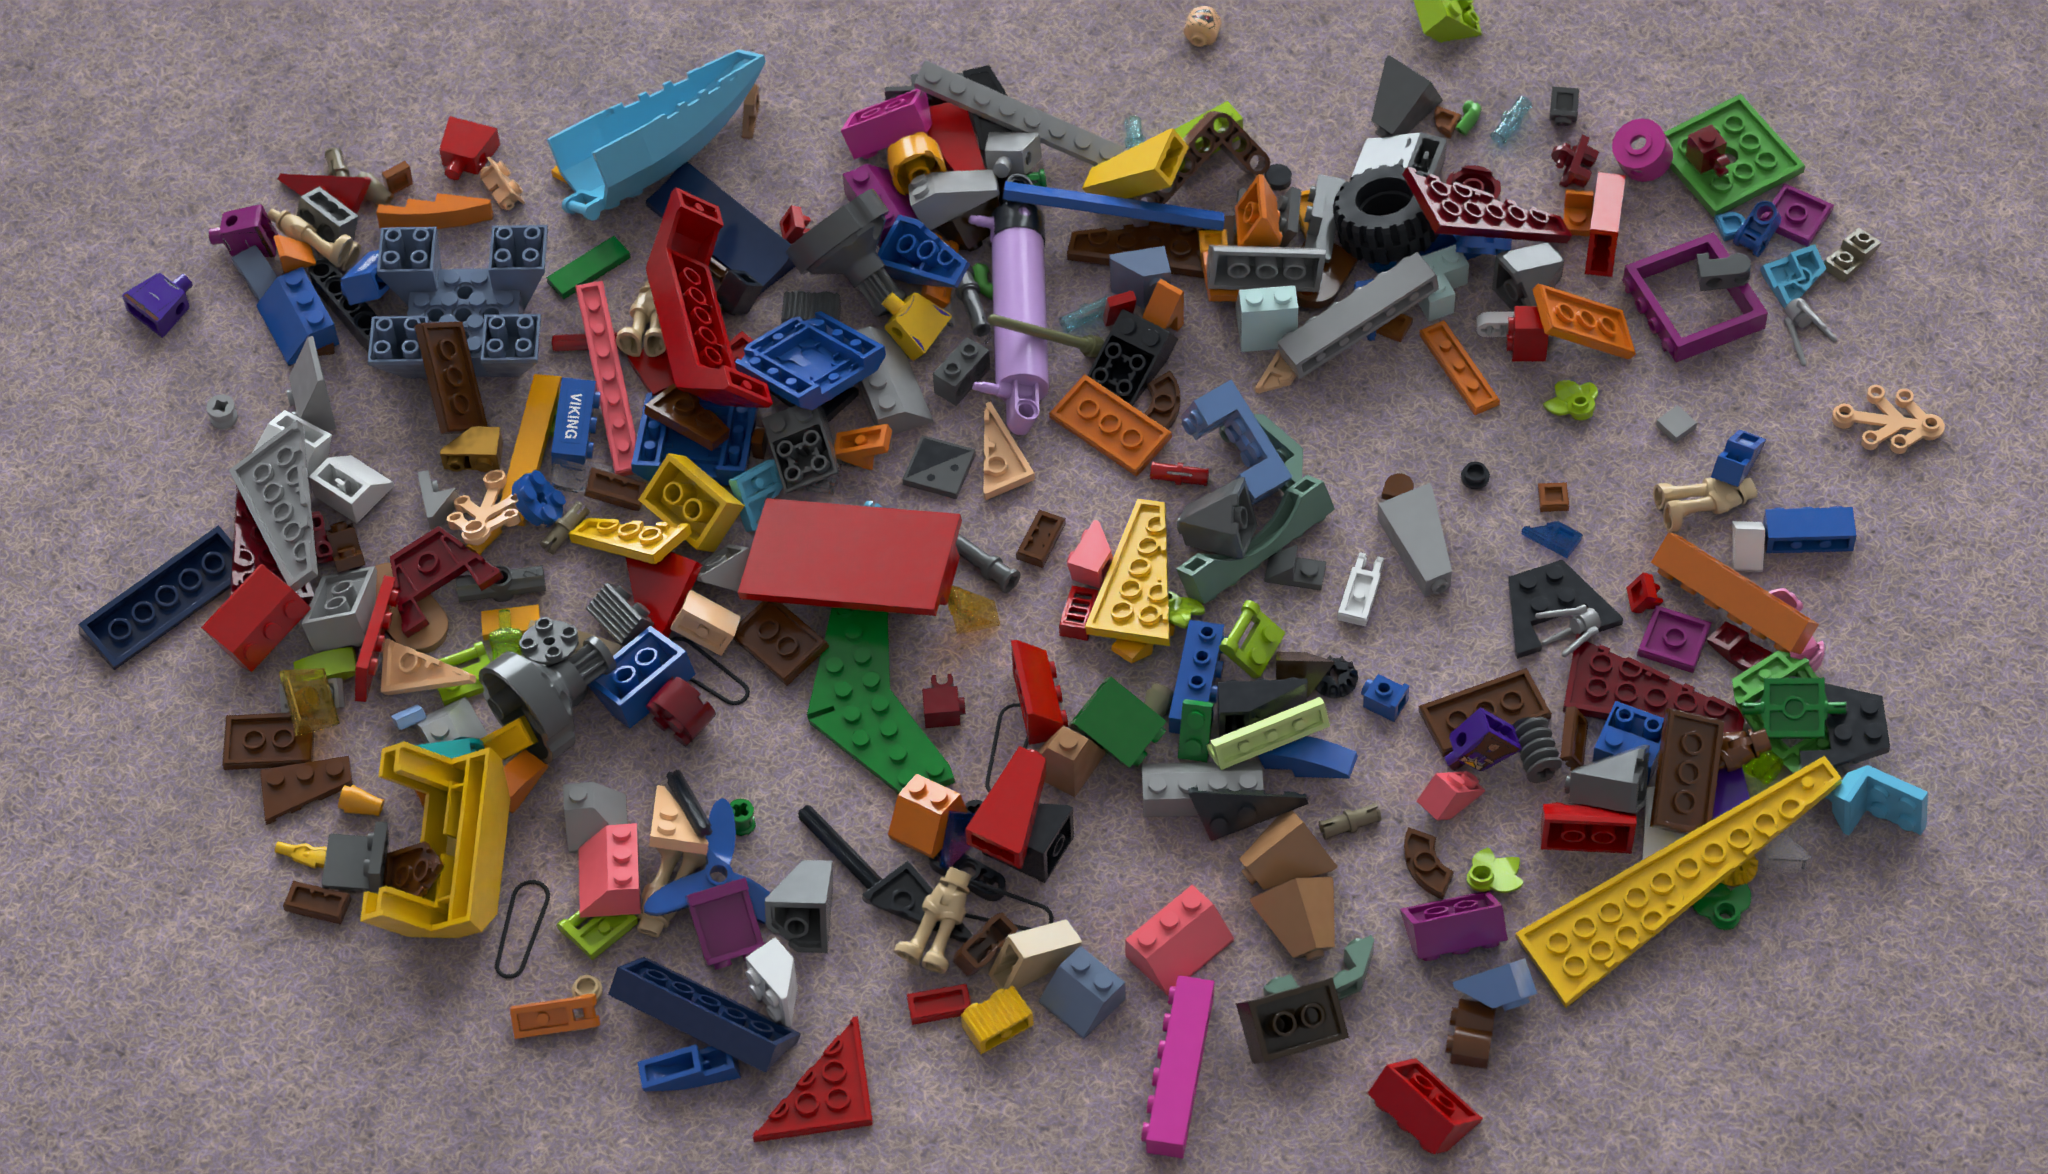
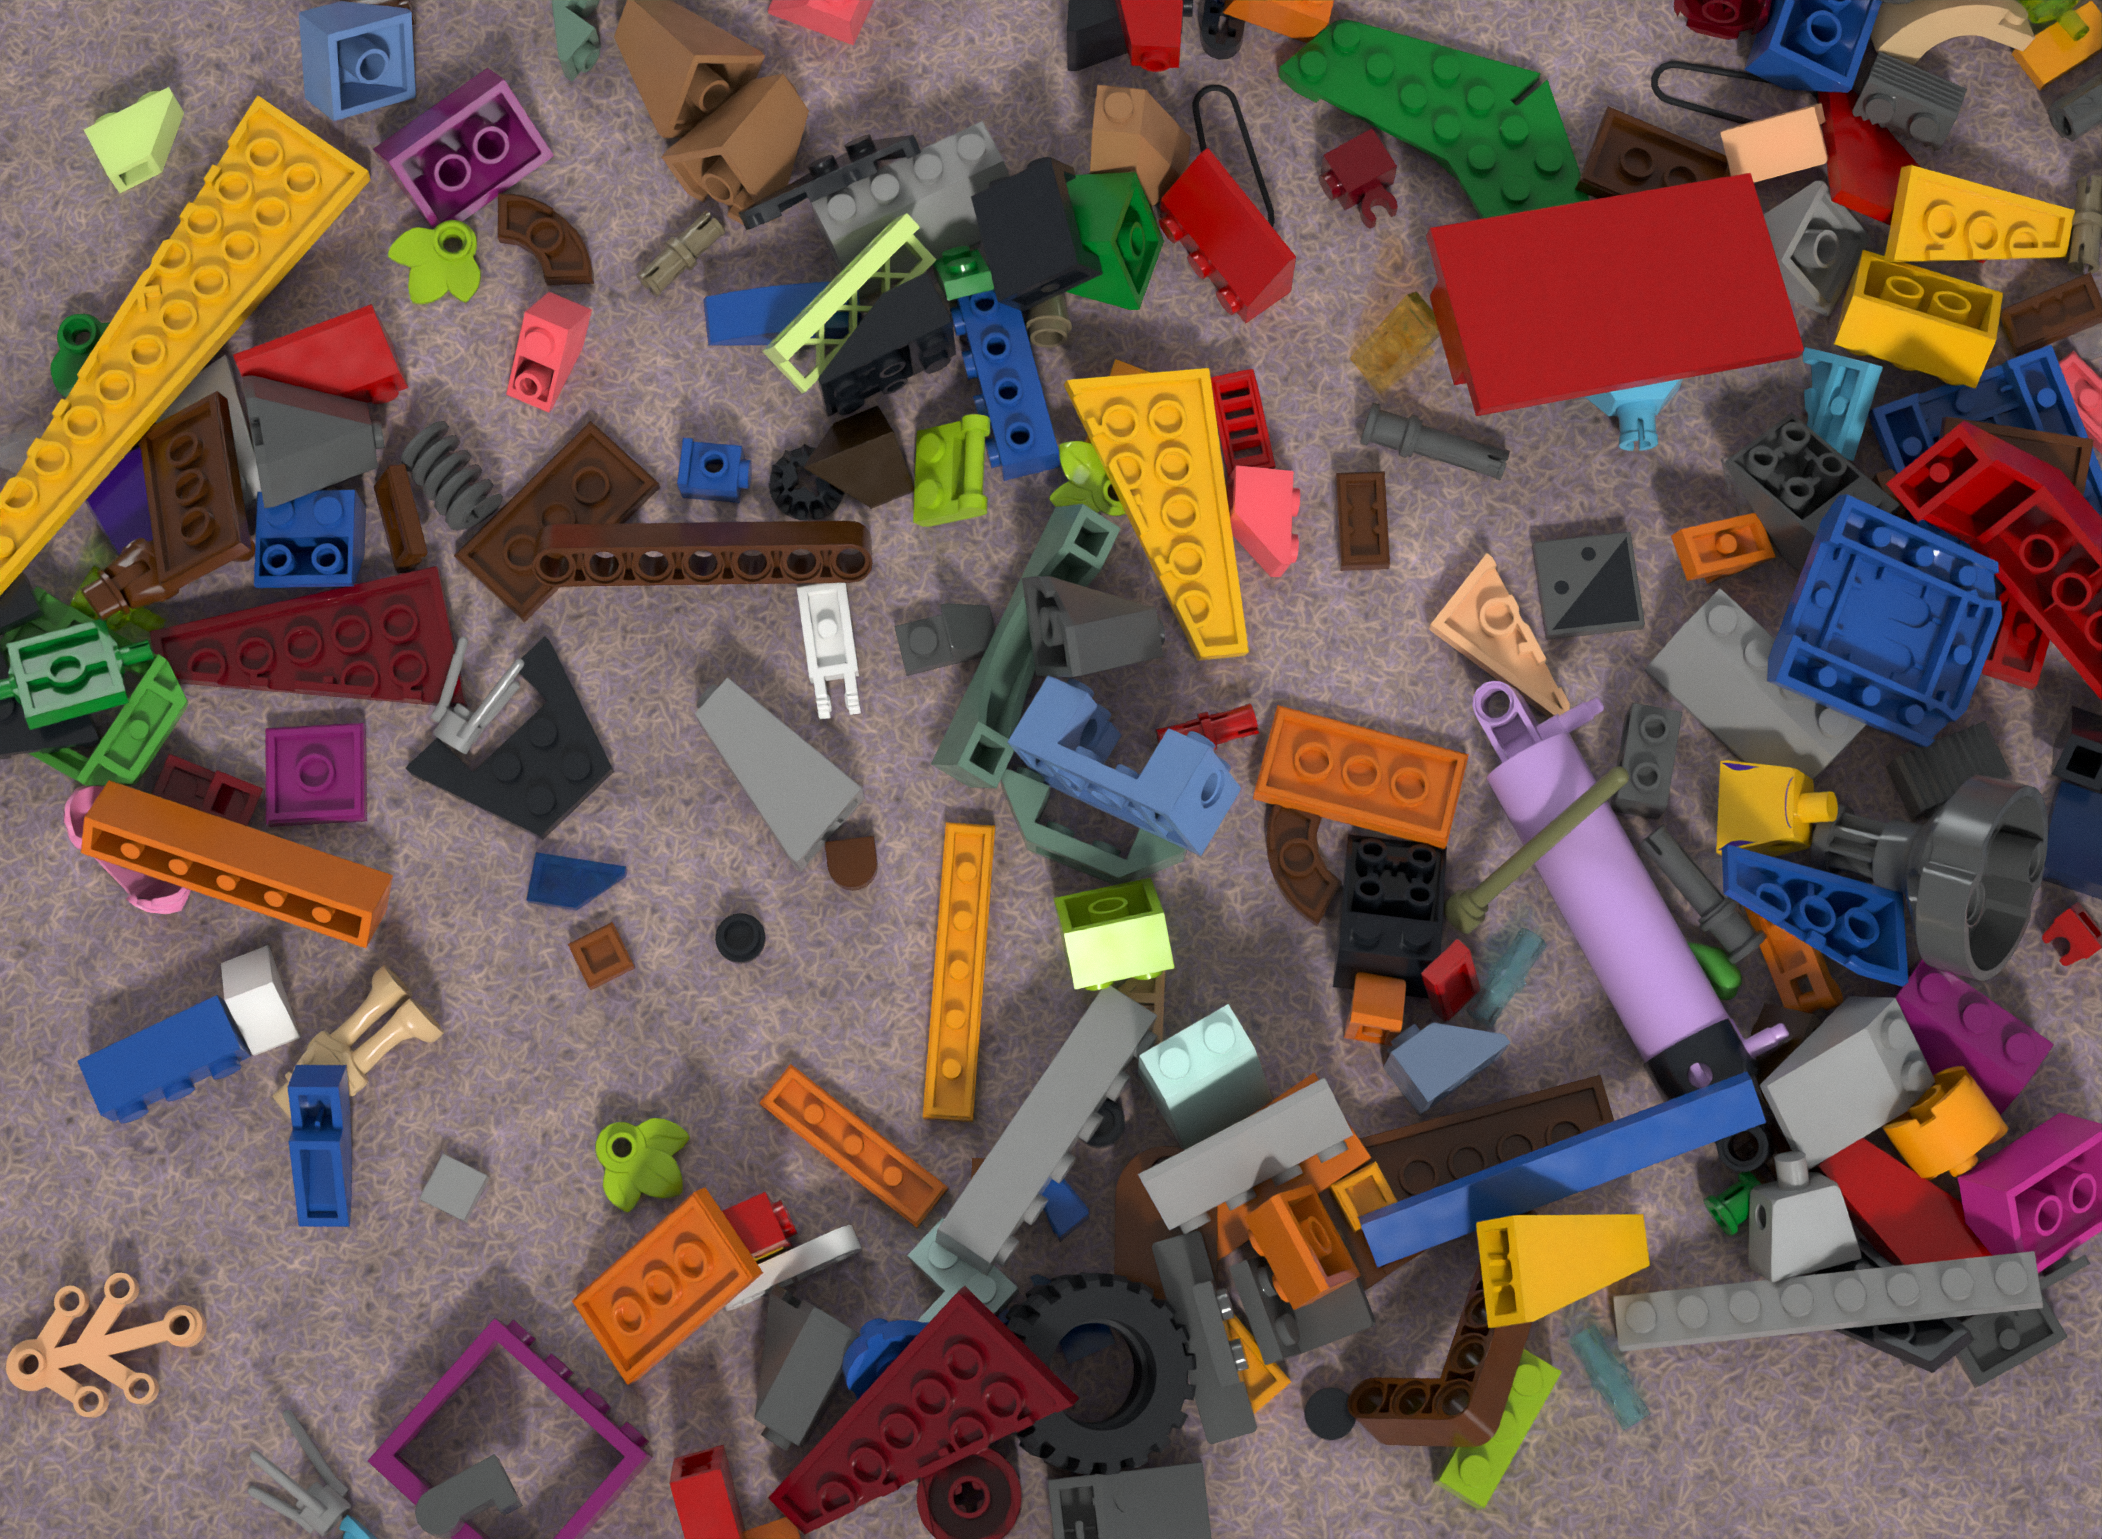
camera: 155 degrees right, 20 degrees up
(1148, 711) = (1033, 235): none -> black panel
(1280, 387) = (1114, 934): none -> brick
(1366, 421) = (959, 972): none -> light orange tile
(1411, 648) = (682, 567): none -> reddish brown beam
(1482, 742) = (535, 417): dark purple torso -> none
(1643, 593) = (389, 824): red tile -> none
(1650, 1007) = (137, 139): none -> yellowish green slope

